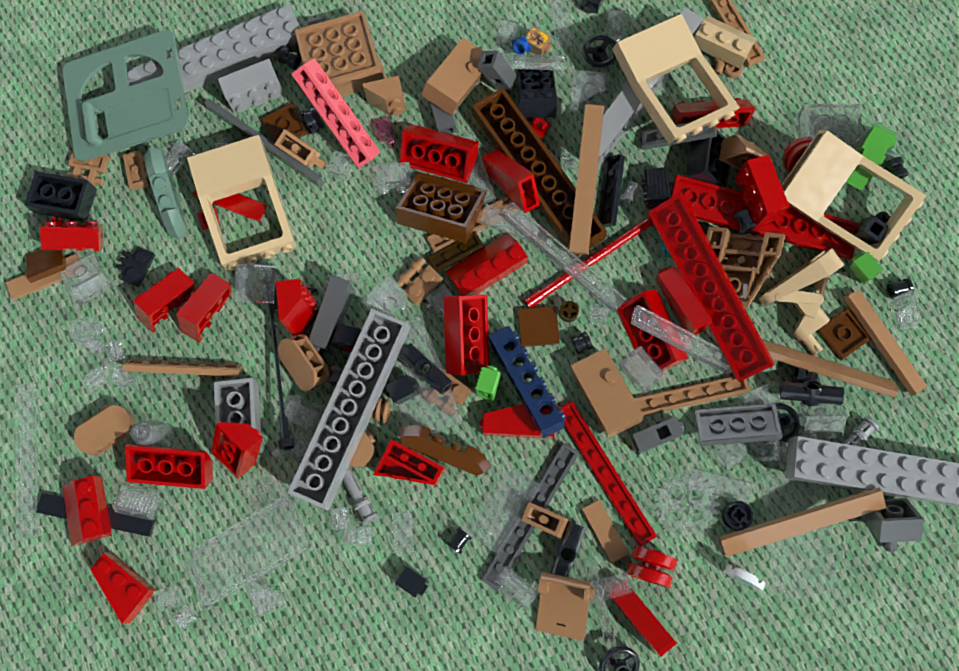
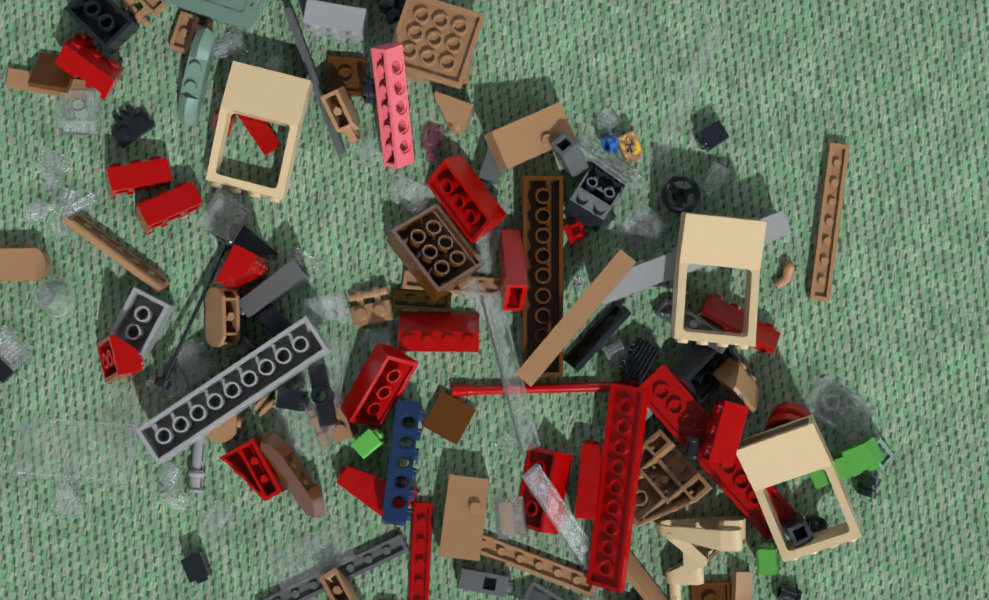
camera: 30 degrees right, 10 degrees up
(128, 350) = (79, 204): none -> clear axle
(168, 466) = (51, 337): red slope -> none
(459, 540) = (258, 558): black bush -> none
(571, 309) = (483, 422): dark brown wheel -> none
(581, 342) = (475, 458): black wheel -> none
(724, 41) = (801, 262): tan slope -> none
(732, 71) = (793, 291): medium nougat tile -> none

